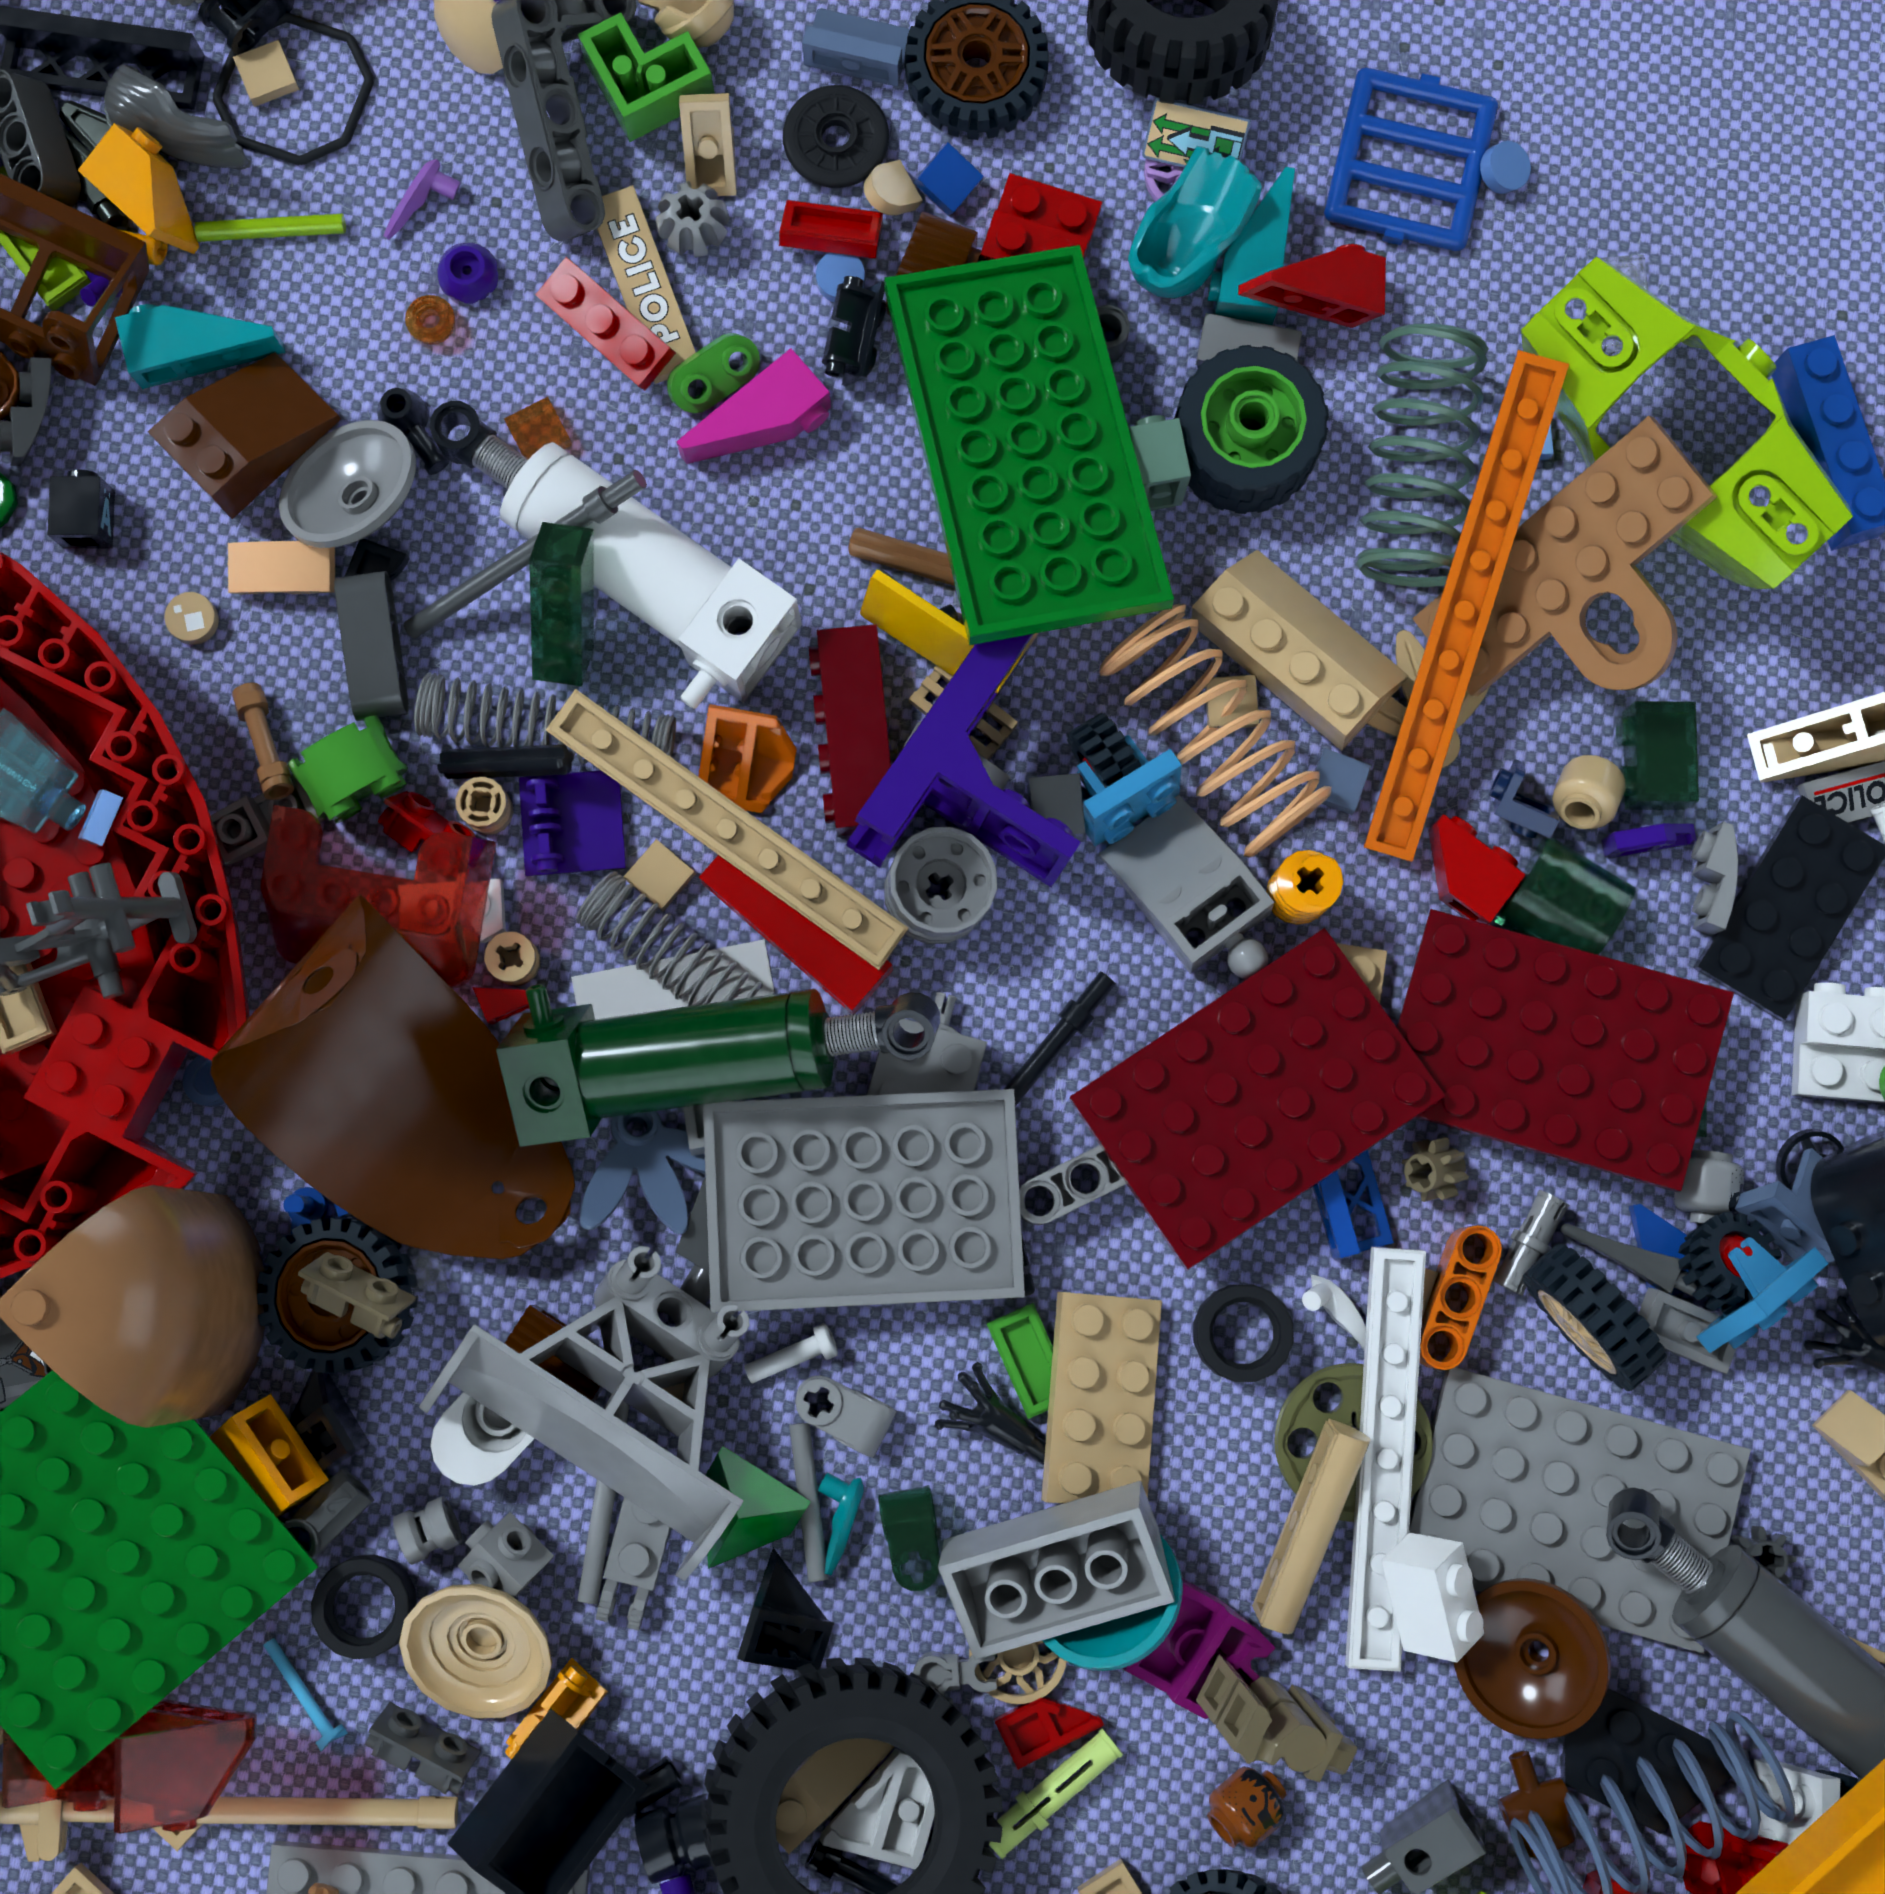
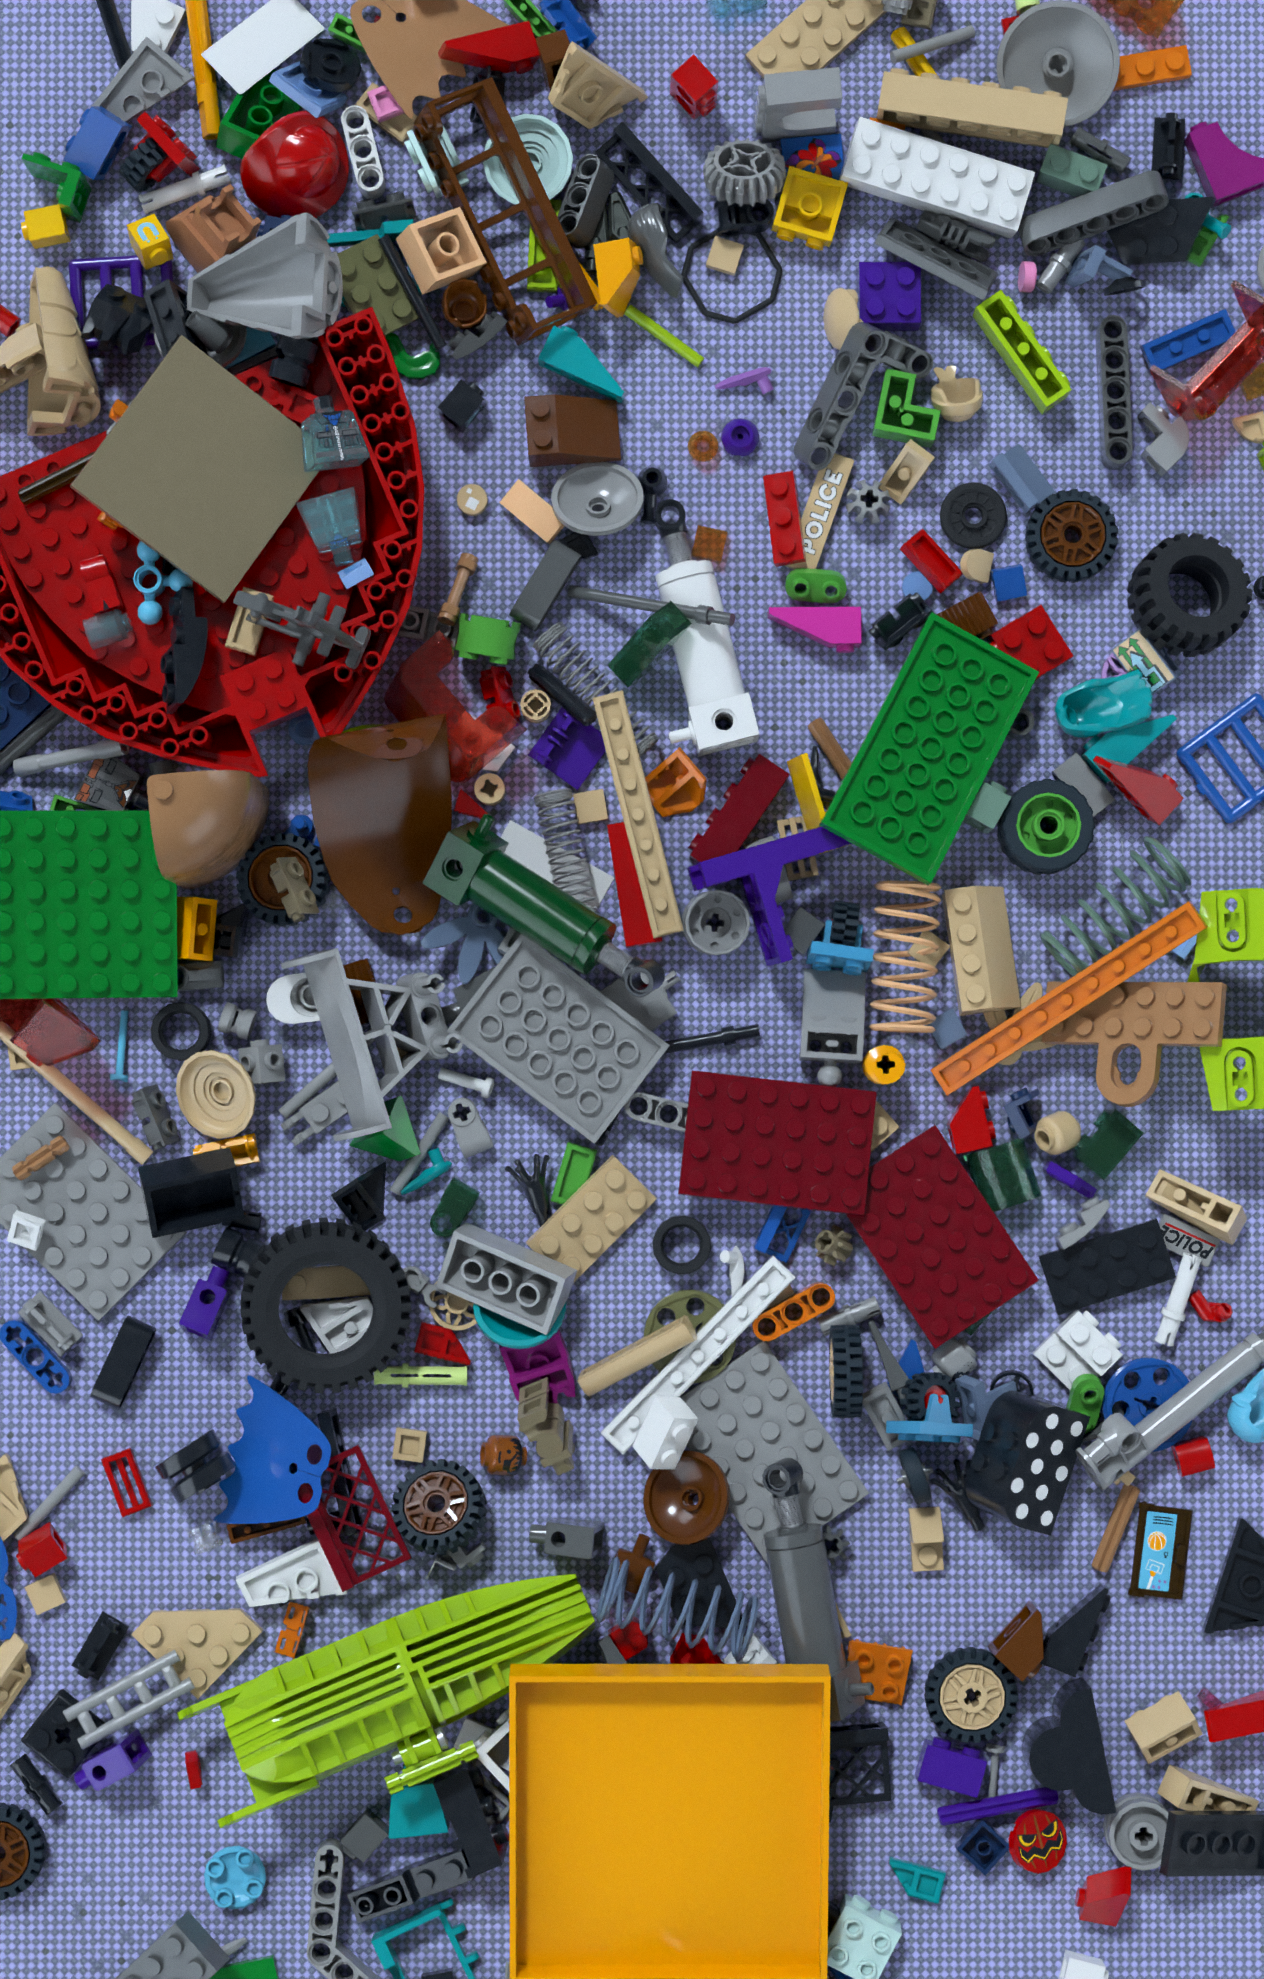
camera: 40 degrees right, 5 degrees up
(1791, 1376) = (914, 1475): none -> black wheel

